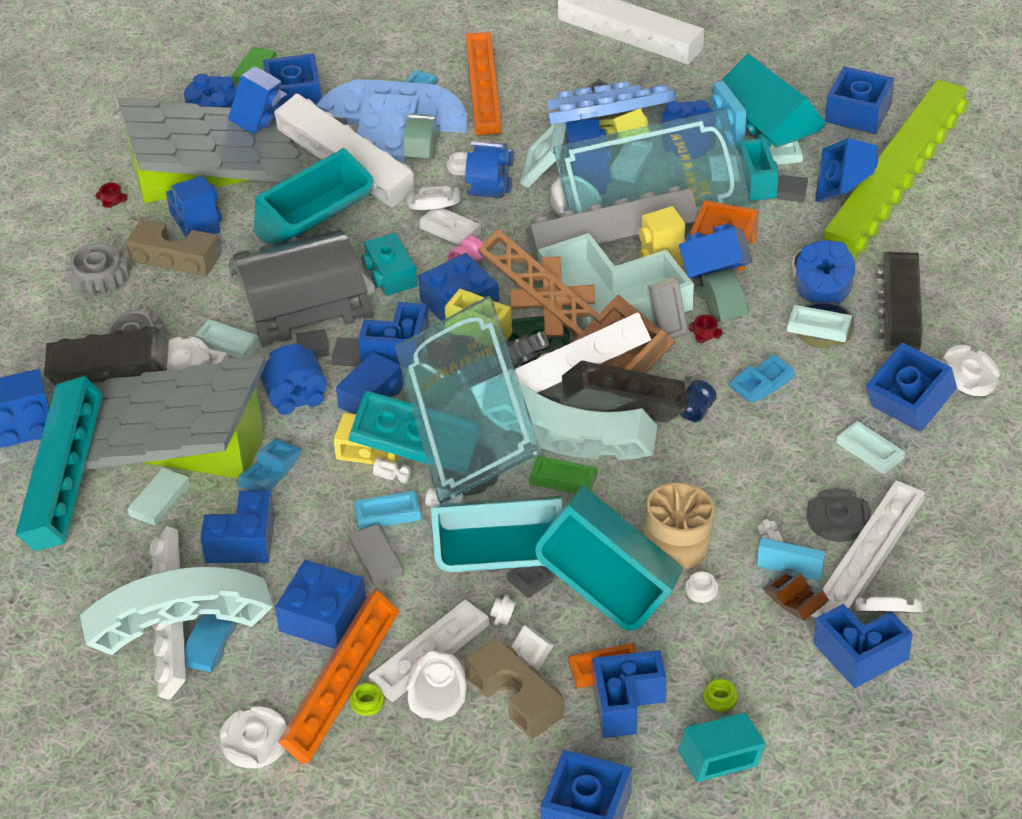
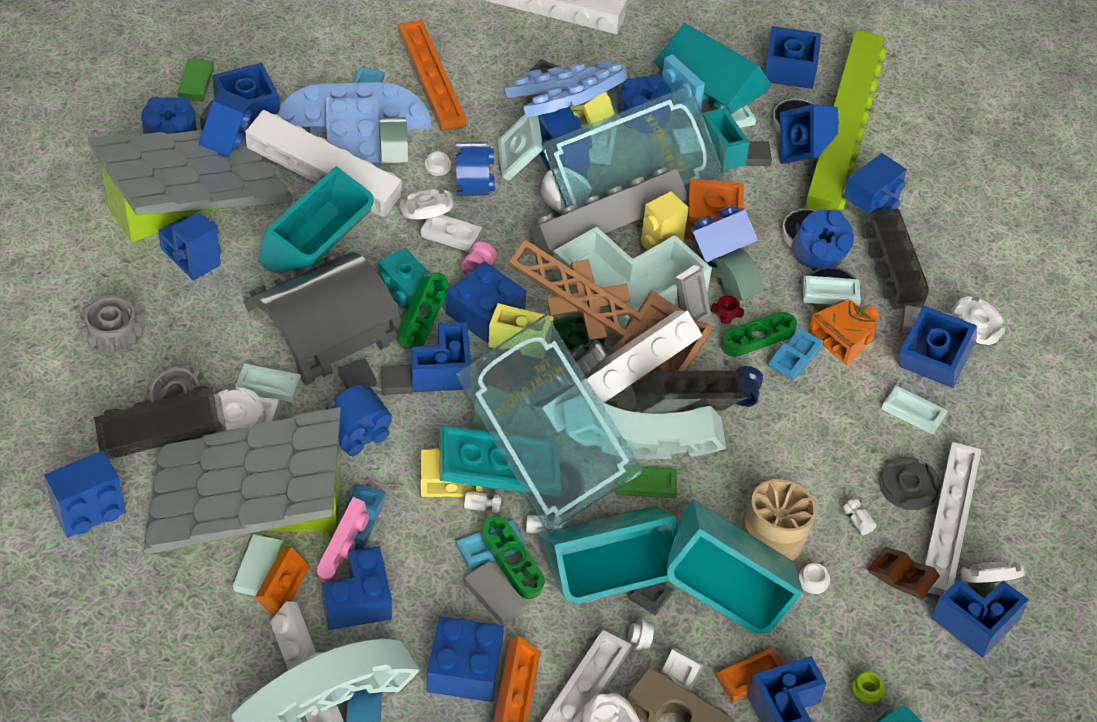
camera: 20 degrees left, 5 degrees up
(59, 464) = (151, 550): teal brick -> none
(110, 195) = (96, 238): dark red plate -> none
(174, 509) = (282, 580): none -> orange plate
(193, 254) = (204, 295): dark tan arch -> none
(243, 477) = (354, 520): none -> bright pink plate
(373, 375) = (433, 407): blue brick -> none
(398, 535) = (493, 542): none -> green beam
(410, 280) = (412, 317): none -> green beam
(738, 347) = (765, 325): none -> green beam
(783, 556) = (882, 535): medium azure tile -> none
(821, 361) = (845, 328): none -> orange torso
(899, 226) = (876, 185): none -> blue brick

